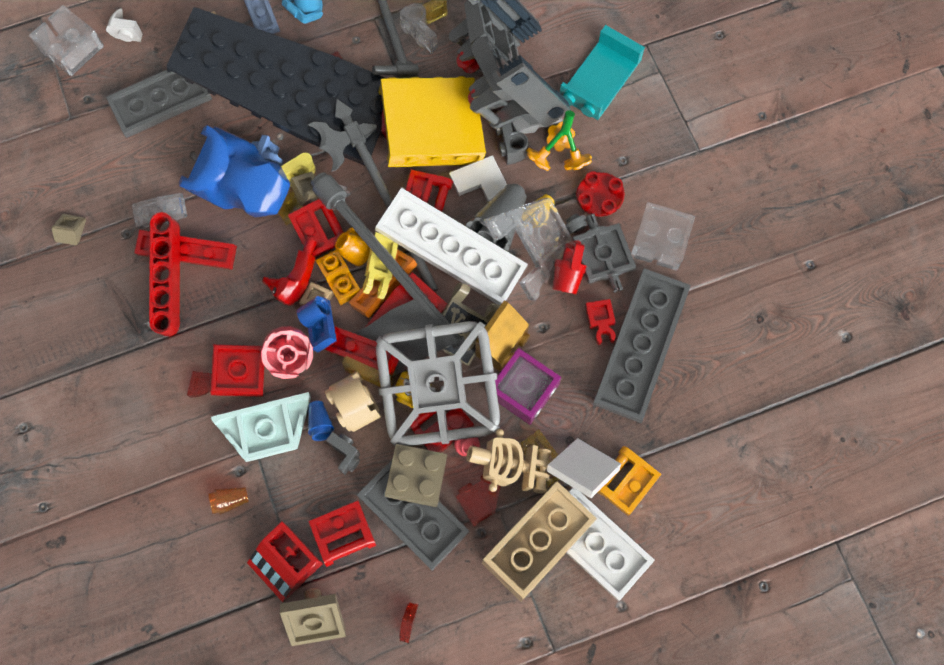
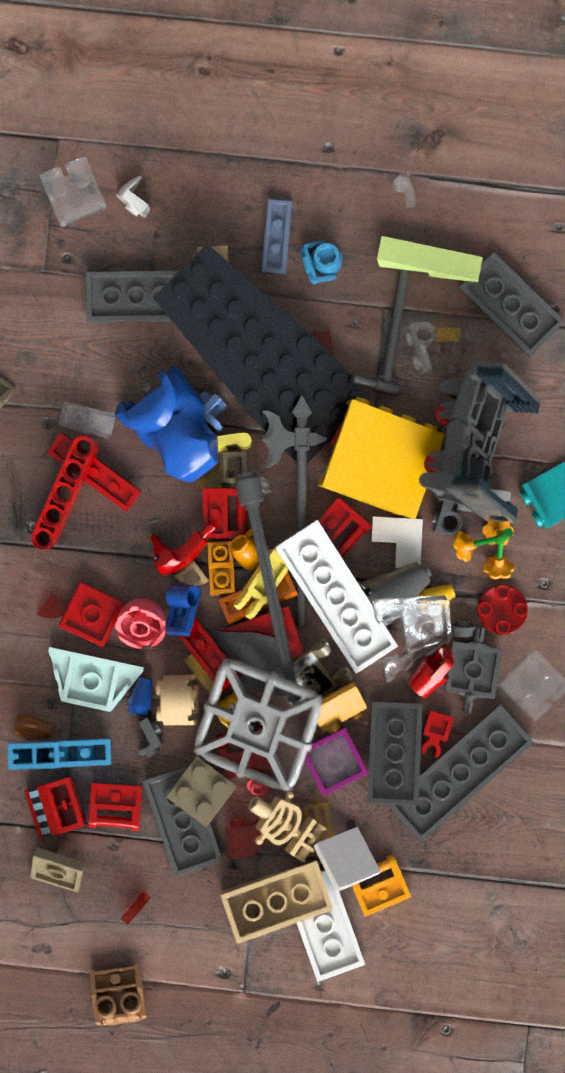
camera: 25 degrees right, 15 degrees up
(262, 506) = (59, 753): none -> dark azure brick
(576, 354) = (395, 753): none -> dark grey plate

